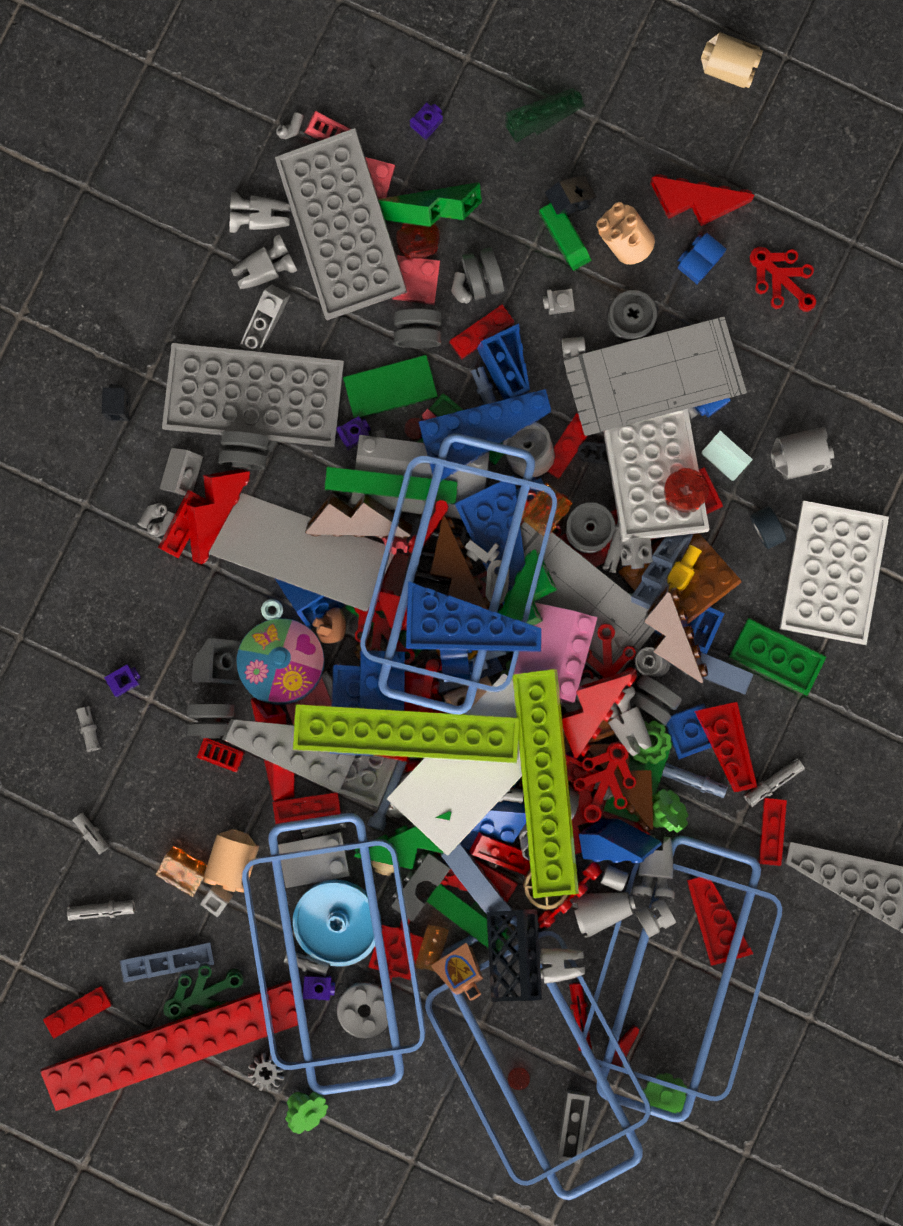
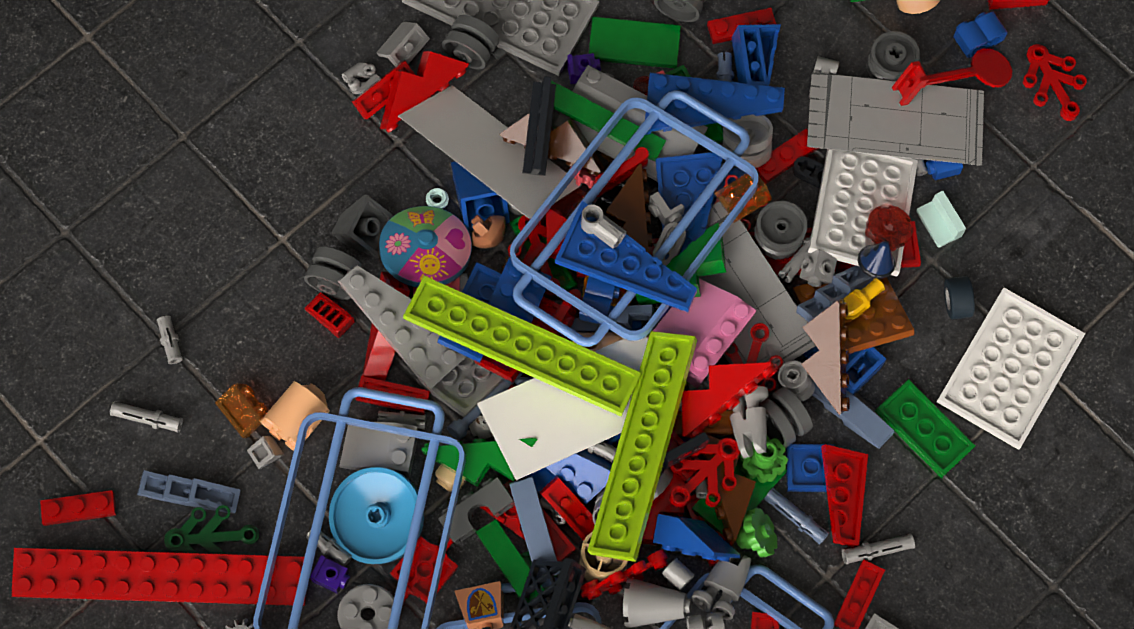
camera: 20 degrees right, 15 degrees down
(88, 729) = (210, 242): light grey pin -> none
(115, 683) = (259, 203): dark purple brick -> none
(341, 520) = (539, 127): none -> black fence
(431, 946) = (461, 576): clear orange bracket -> none
(439, 605) = (602, 228): none -> light grey piece
(559, 301) = (826, 24): light grey bracket -> none
(582, 772) = (685, 450): none -> black tile
(686, 528) = (877, 260): none -> dark blue hat
(720, 288) = (986, 65): none -> red piece
(802, 453) = (1017, 240): light grey cylinder -> none

